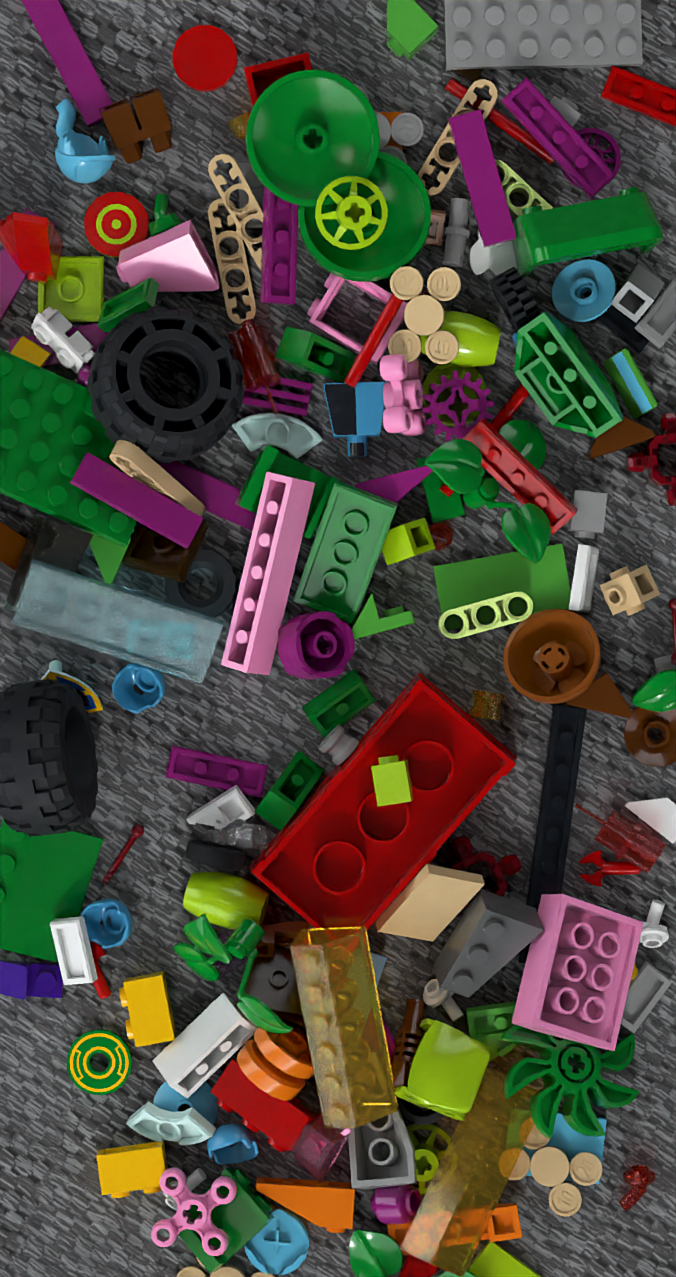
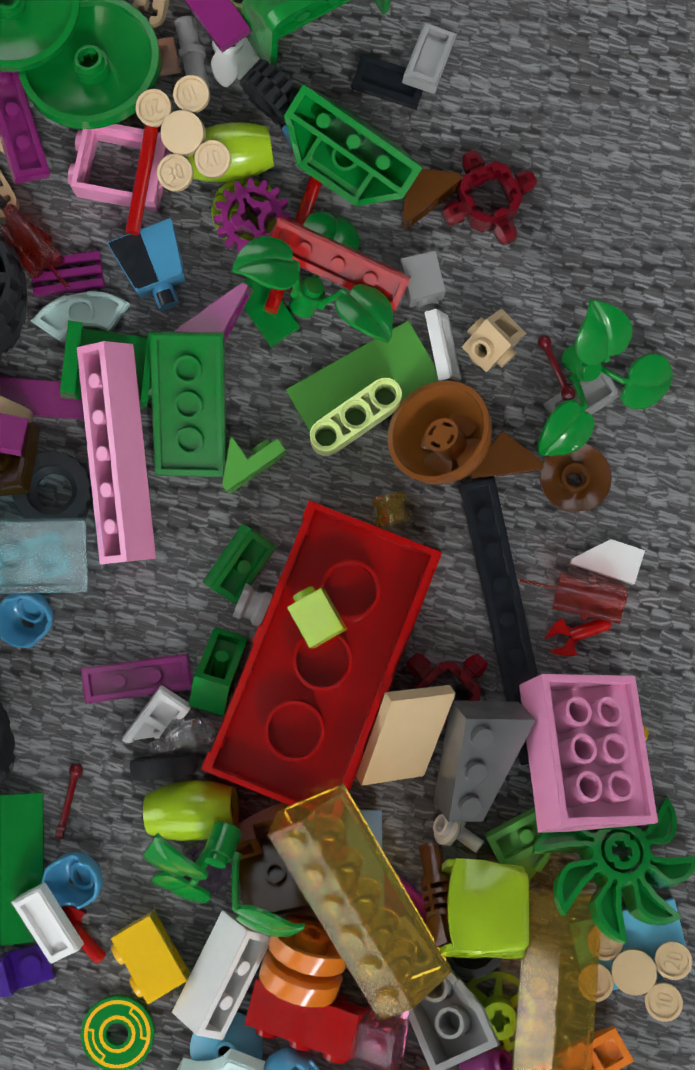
camera: 20 degrees left, 5 degrees down
(315, 354) = (87, 218): green slope -> none
(315, 645) = (191, 509): magenta brick -> none
(351, 212) = (72, 55): lime wheel -> none
(402, 395) = (191, 224): bright pink gear -> none
(407, 541) = (249, 371): lime brick -> none
(442, 531) = (281, 351): clear red hinge -> none
(578, 279) = (338, 51): medium azure dish -> none
(630, 383) = (418, 138): bright green slope -> none
(637, 293) = (392, 46): light grey brick -> none
(643, 995) = (663, 751): light grey tile -> none
(652, 933) = (649, 685): white plate -> none

